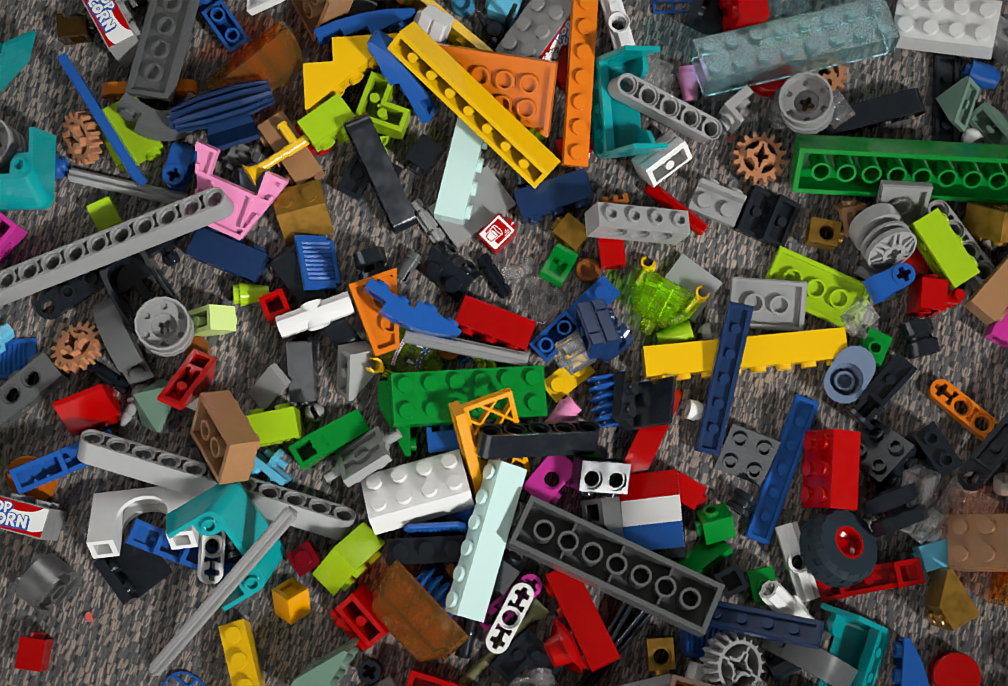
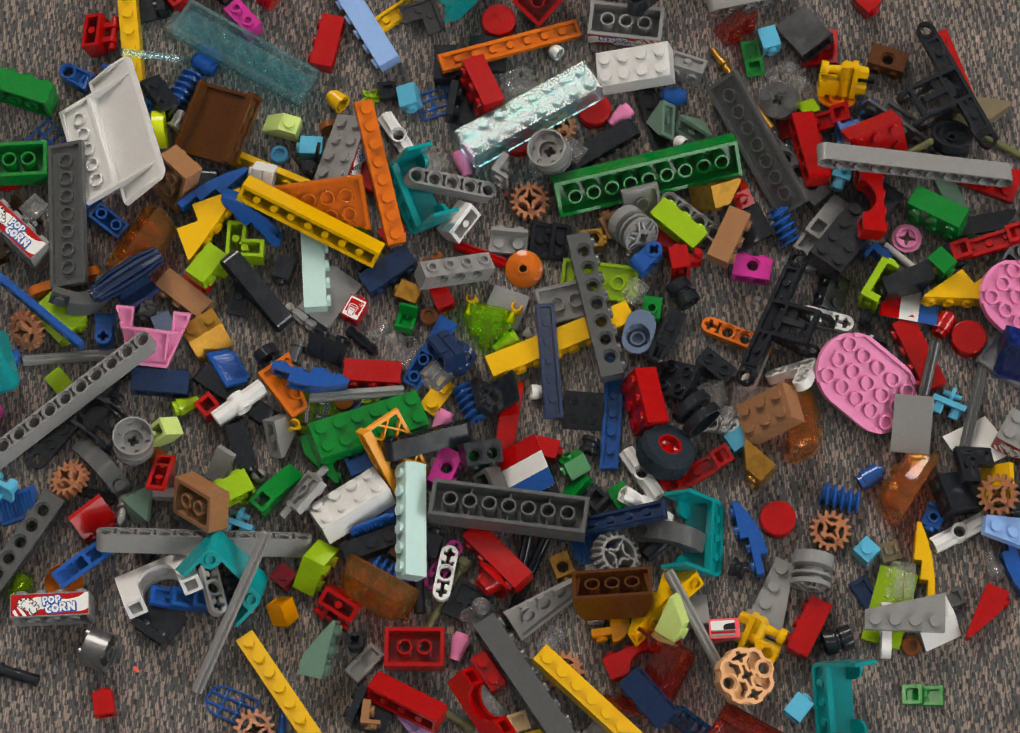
camera: 15 degrees left, 10 degrees down
(295, 145) = (186, 290): yellow piece -> none
(739, 244) = (530, 276): none -> orange dish
(803, 235) = (606, 370): none -> dark grey brick
(874, 71) = (595, 115): none -> red head
(907, 79) = (620, 114): none -> bright pink cone

